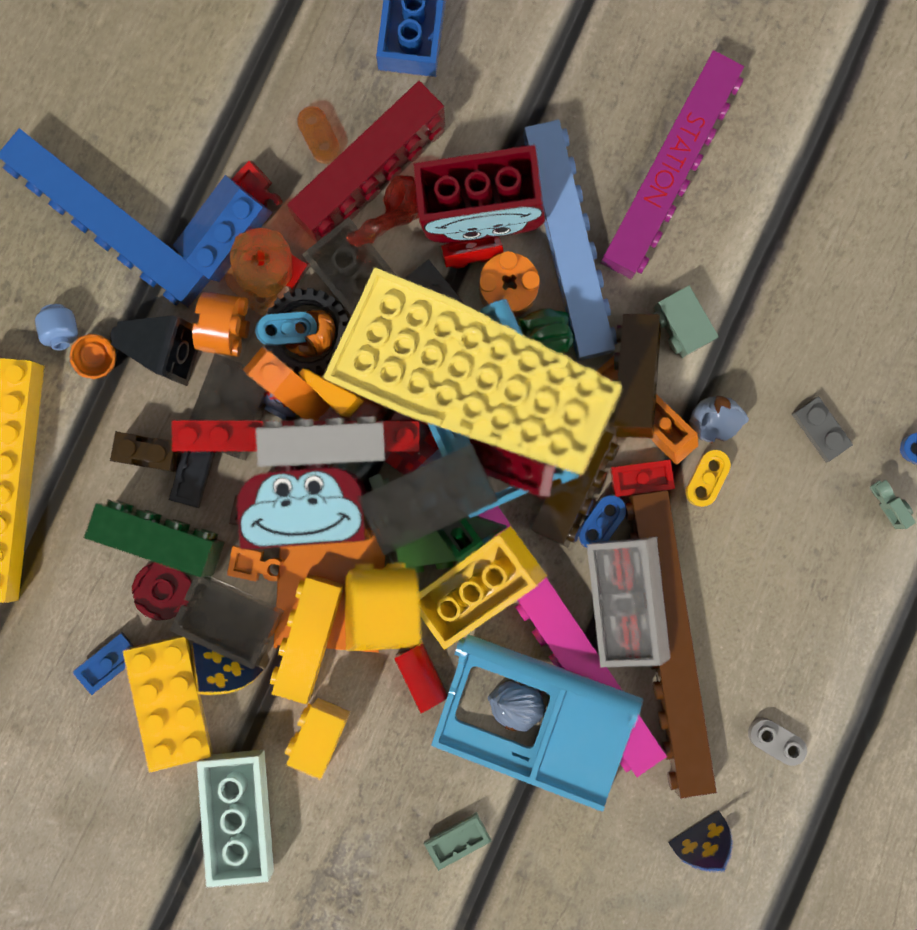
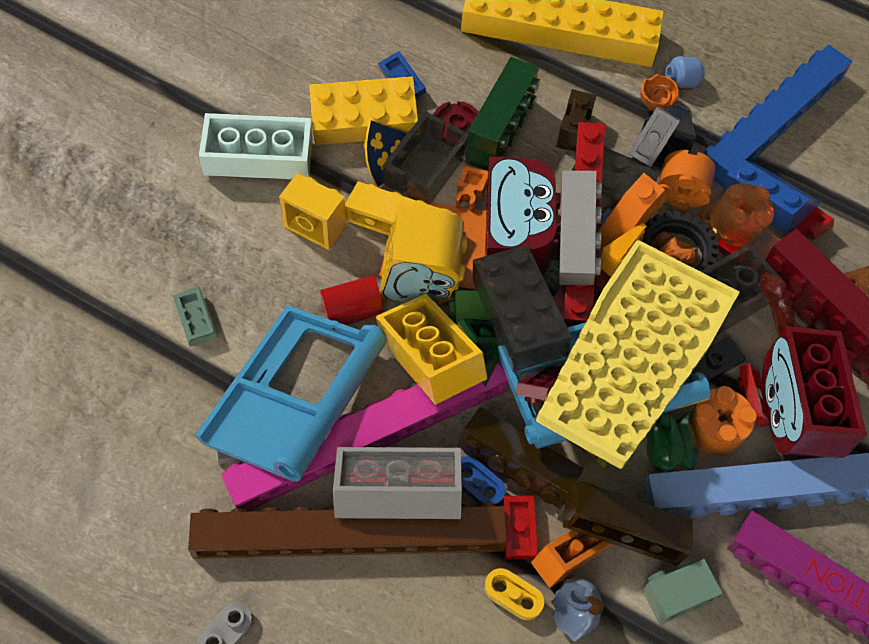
camera: 95 degrees right, 25 degrees down
(180, 362) = (654, 136): none -> plate
(191, 477) = (551, 152): black plate -> none
(285, 328) = (683, 227): dark azure plate -> none
(517, 706) = (309, 380): sand blue hair -> none
(705, 844) = (136, 532): dark blue shield -> none

